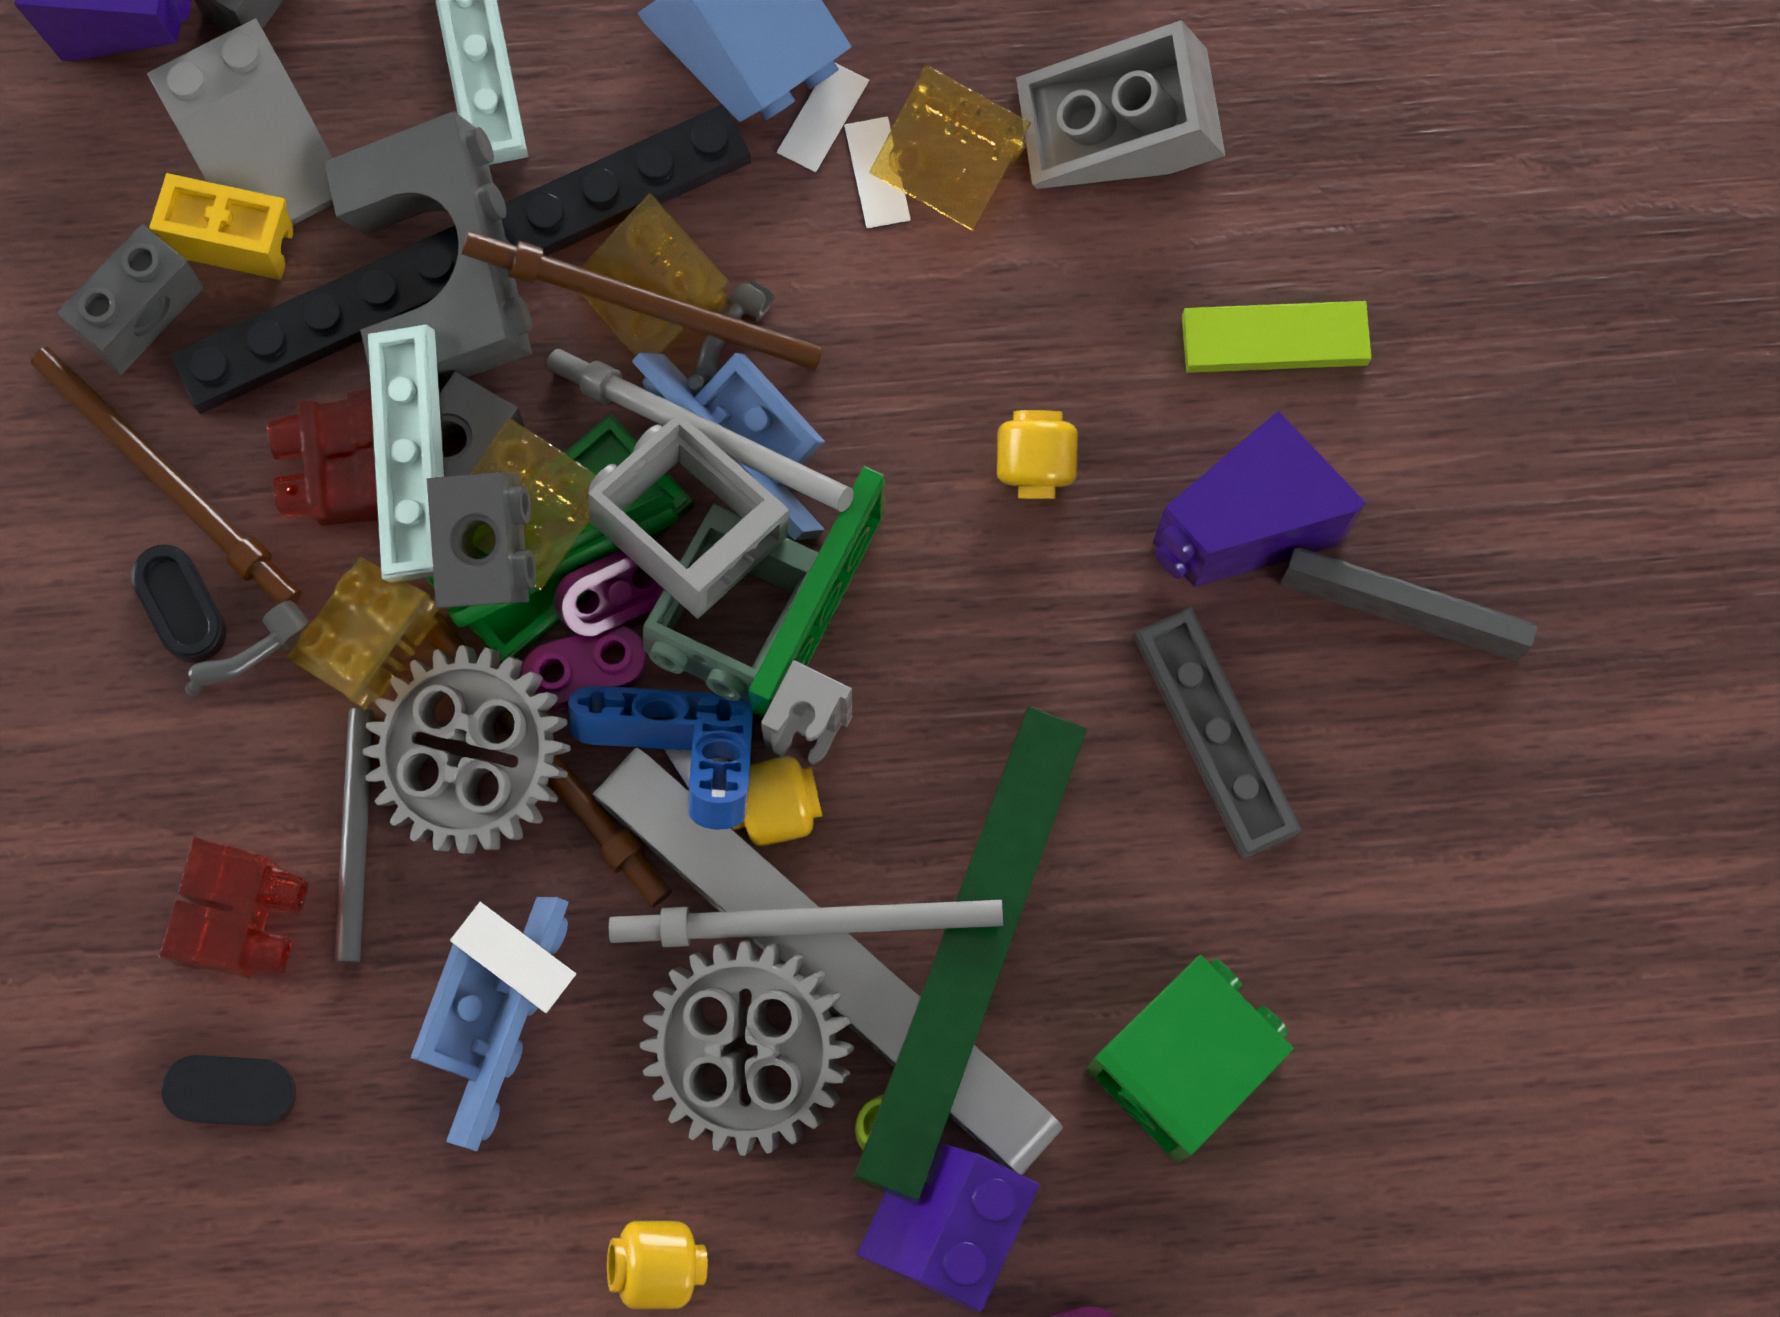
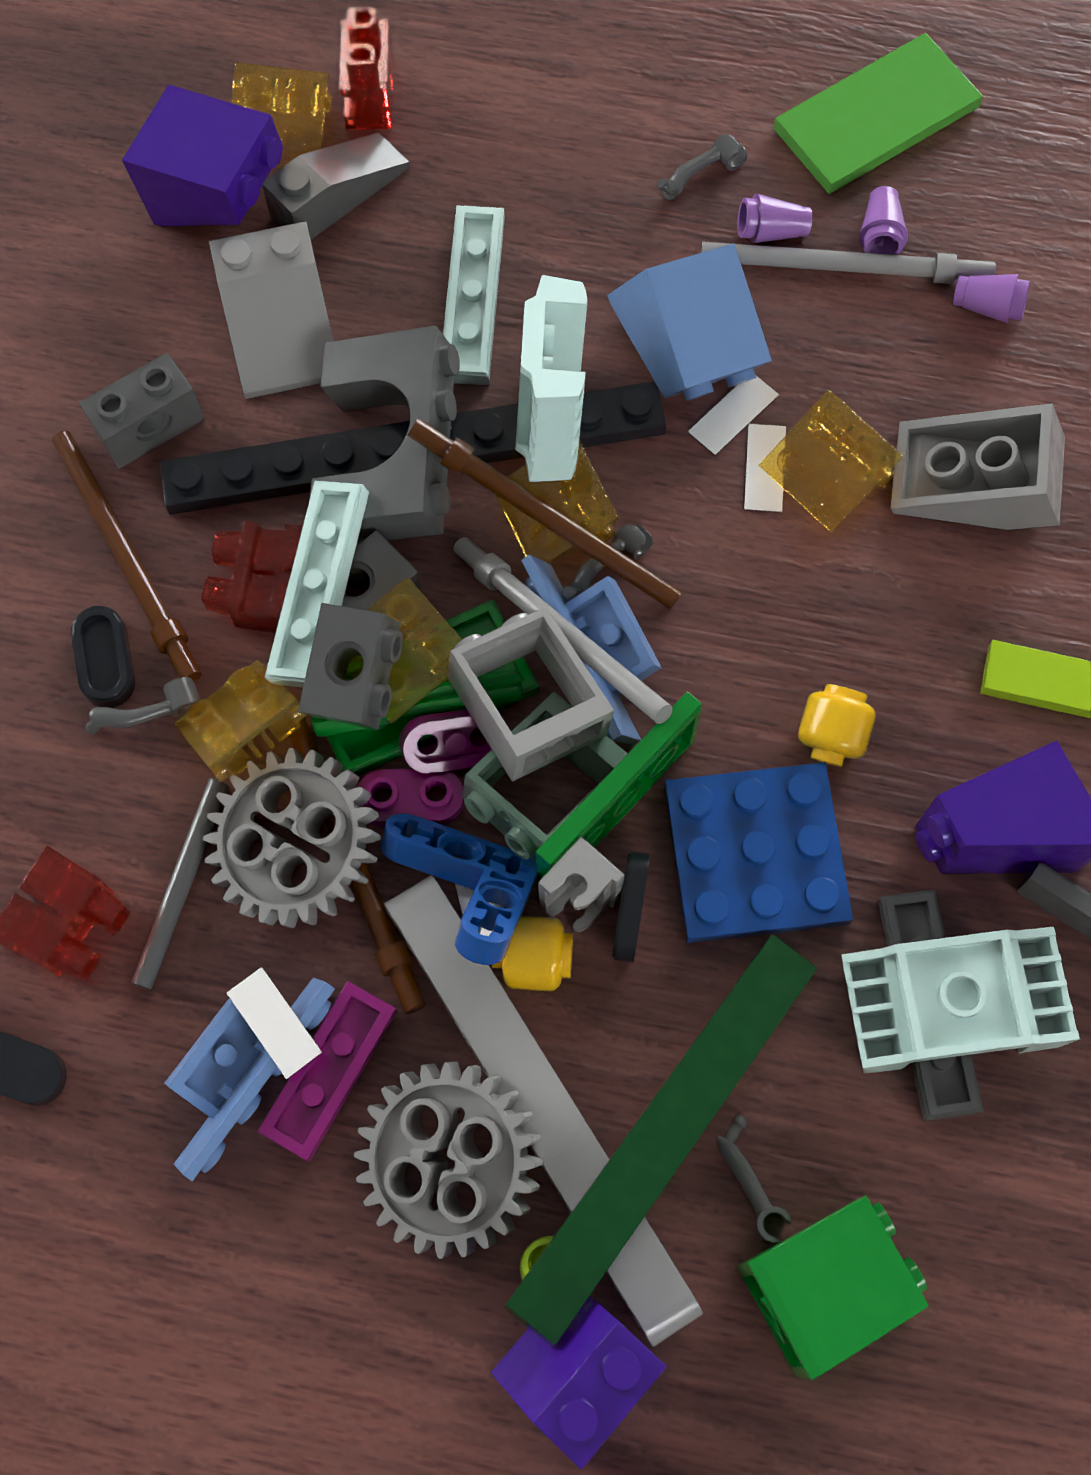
camera: 20 degrees right, 5 degrees down
(223, 225) = (231, 373): yellow hinge -> none
(584, 1014) = (323, 1085): none -> magenta plate
(605, 153) = (552, 379): none -> light aqua plate
(656, 1265) = (314, 1328): yellow head -> none
(678, 926) = (420, 1037): light grey bar -> none
(866, 719) = (631, 907): none -> black tile
(987, 620) = (757, 852): none -> blue plate
(1074, 976) = (749, 1182): none -> dark grey piece
(1245, 718) = (959, 997): none -> light aqua plate

